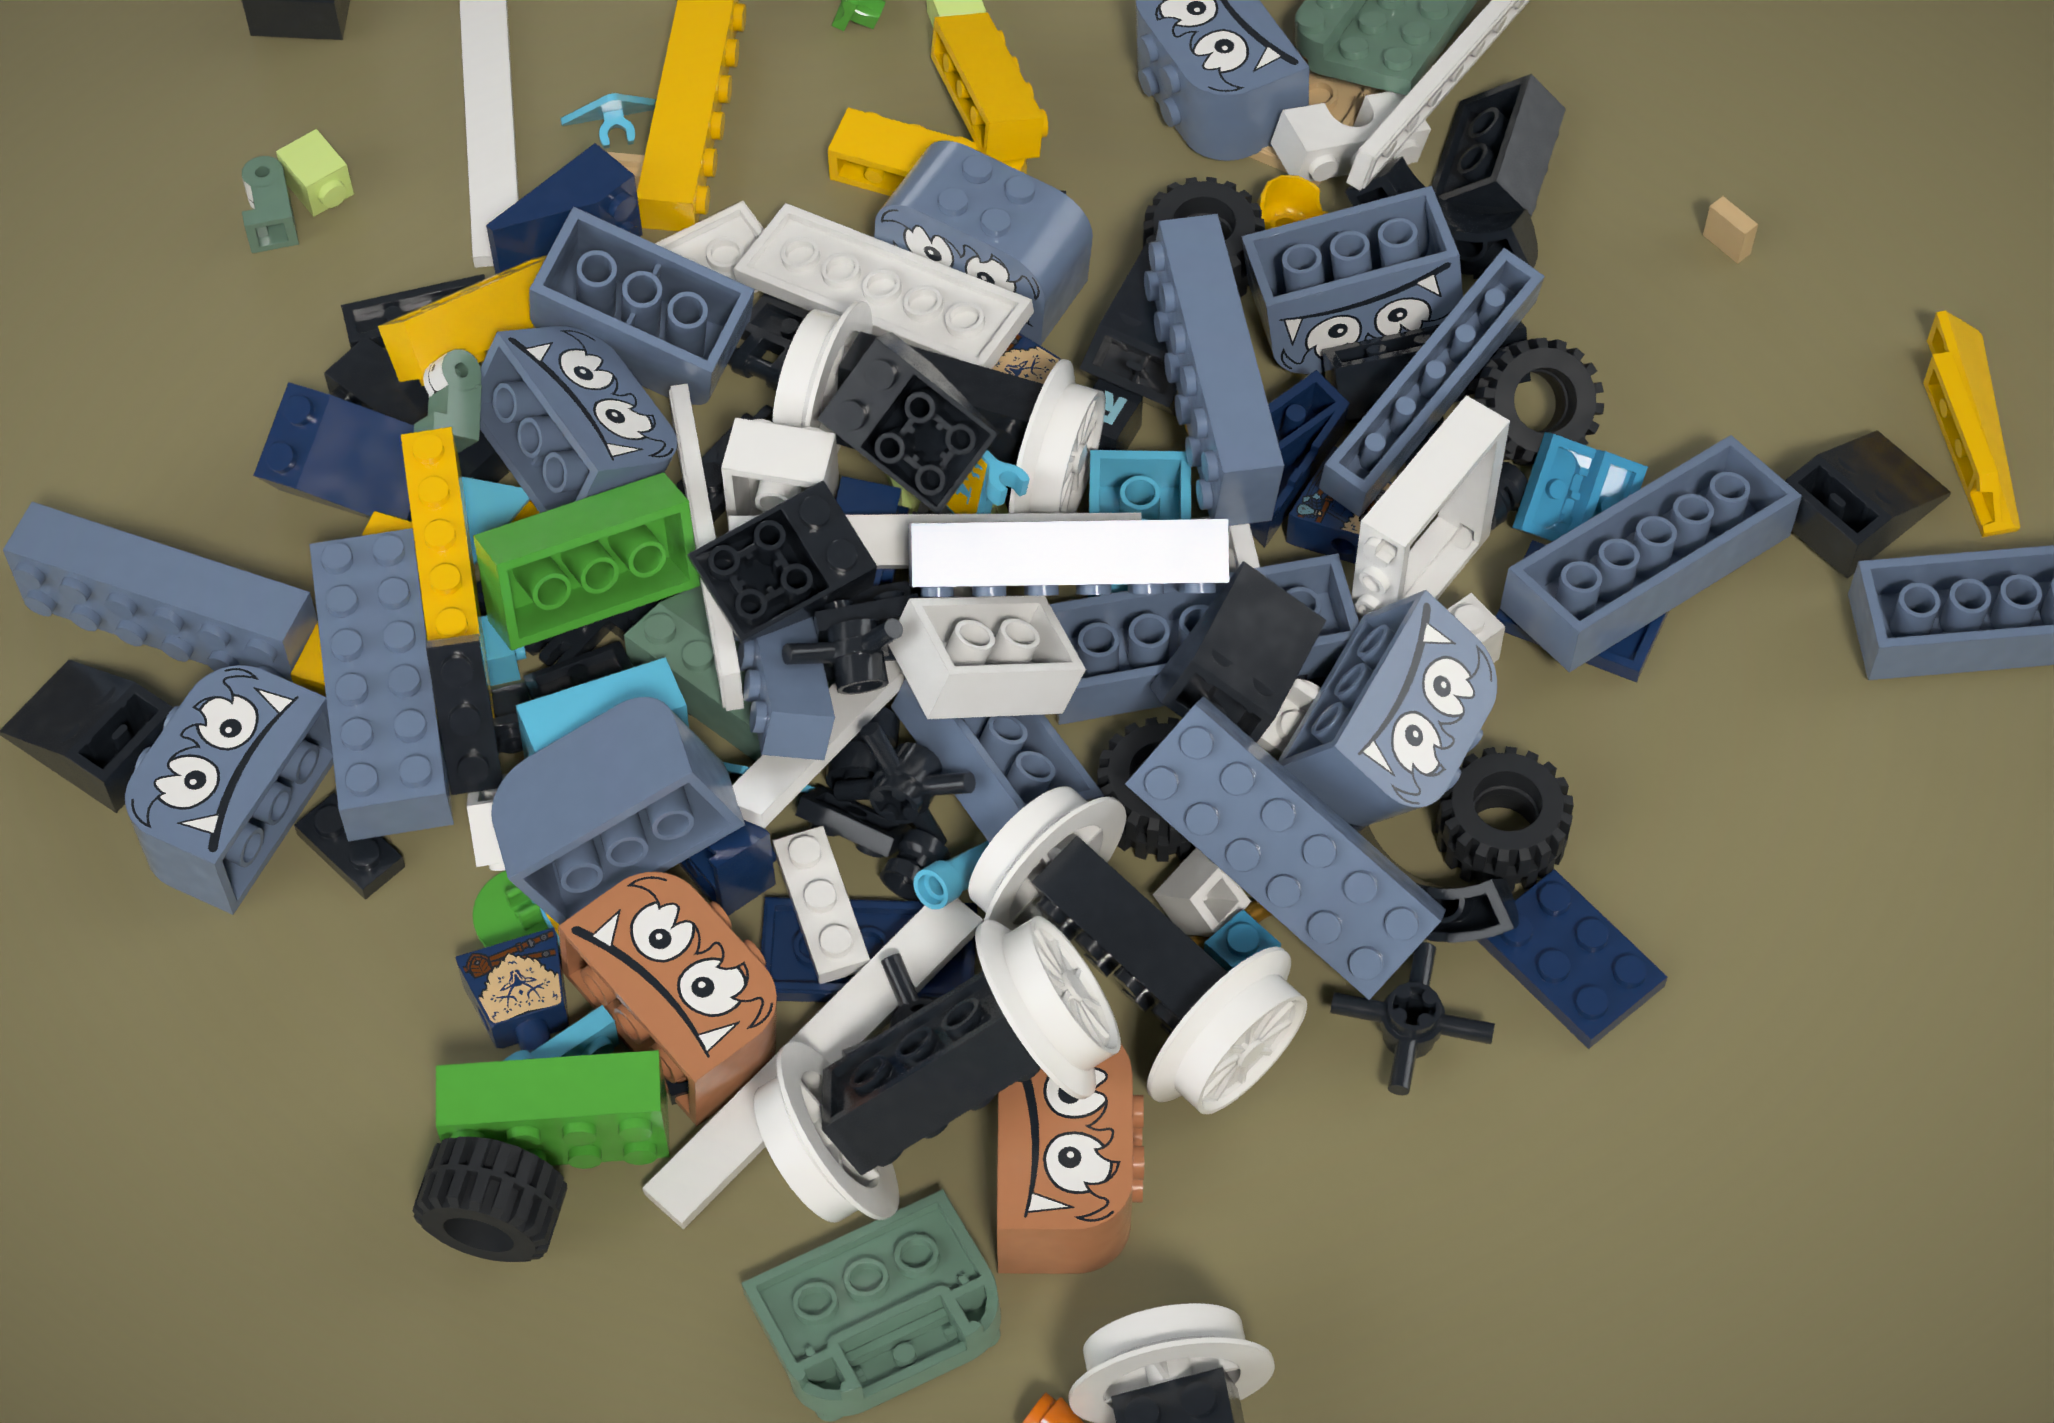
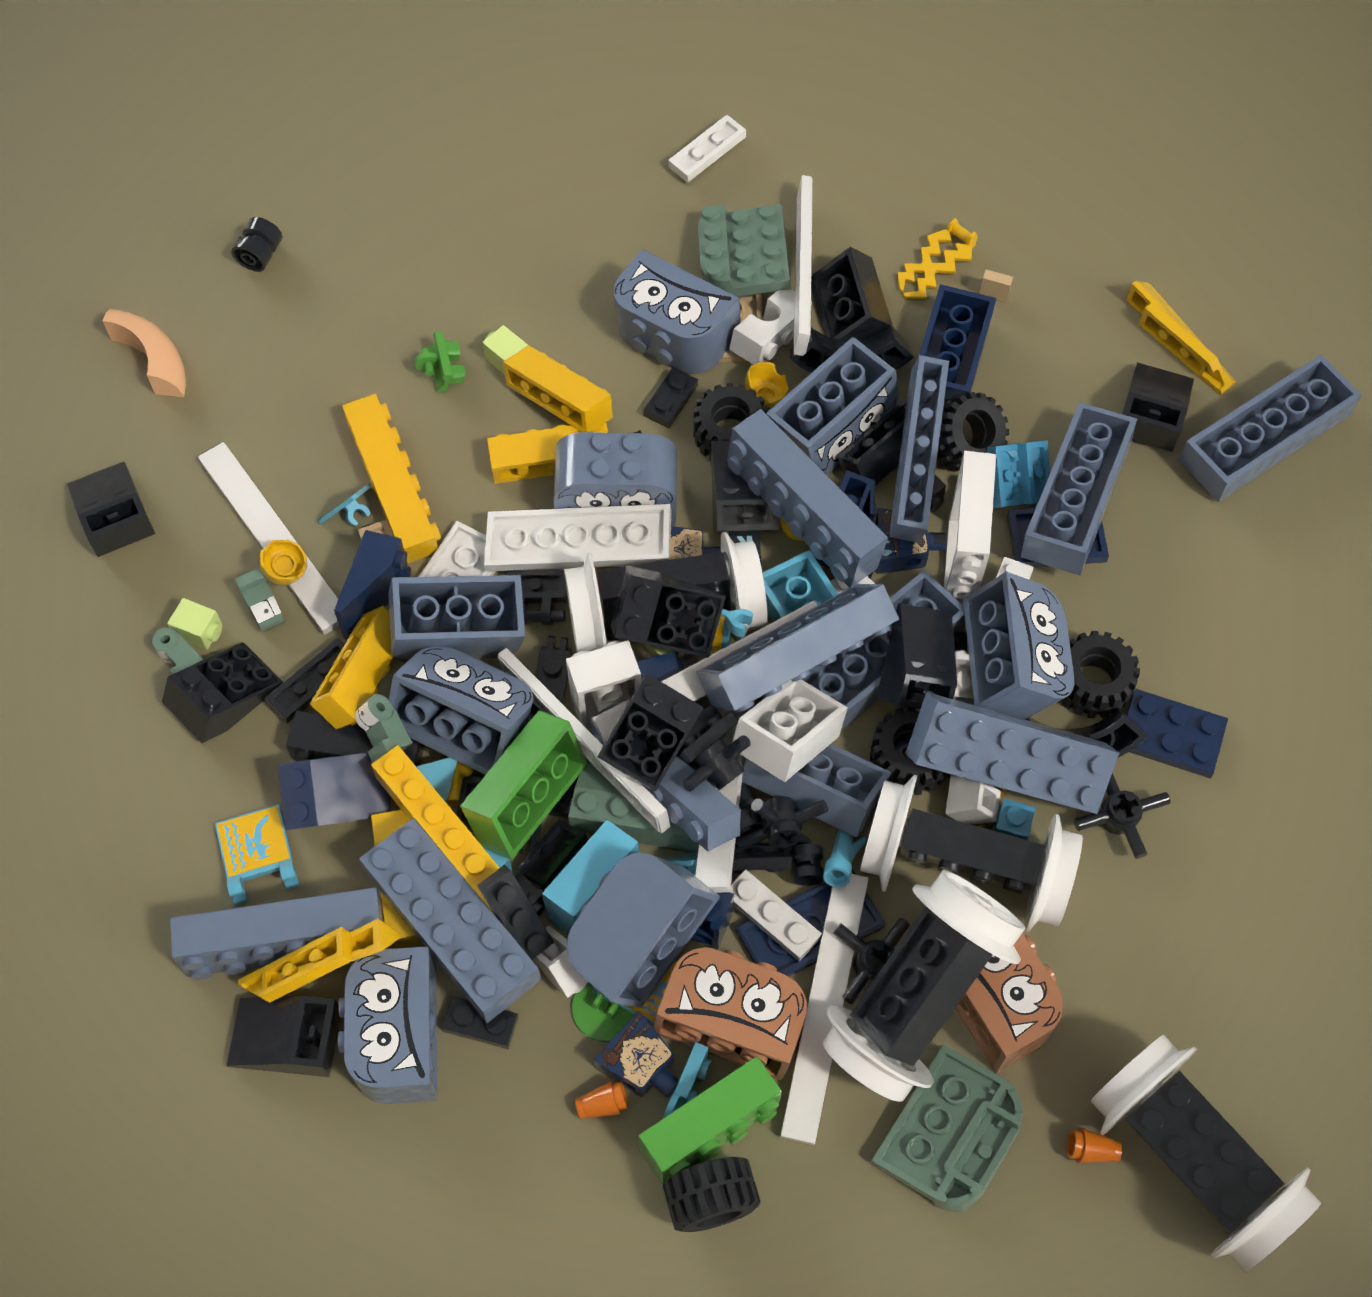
camera: 30 degrees left, 5 degrees up
(188, 642) = (318, 959): none -> yellow wedge
(206, 486) = (255, 847): none -> flag
(290, 269) = (219, 691): none -> black slope
(418, 180) = (259, 599): none -> sand green leg
(443, 1022) = (603, 1101): none -> orange cone
(472, 143) = (283, 562): none -> yellow hair
(1147, 172) = (670, 397): none -> black plate
(1612, 273) = (958, 335): none -> dark blue brick
(1650, 165) = (963, 253): none -> yellow piece

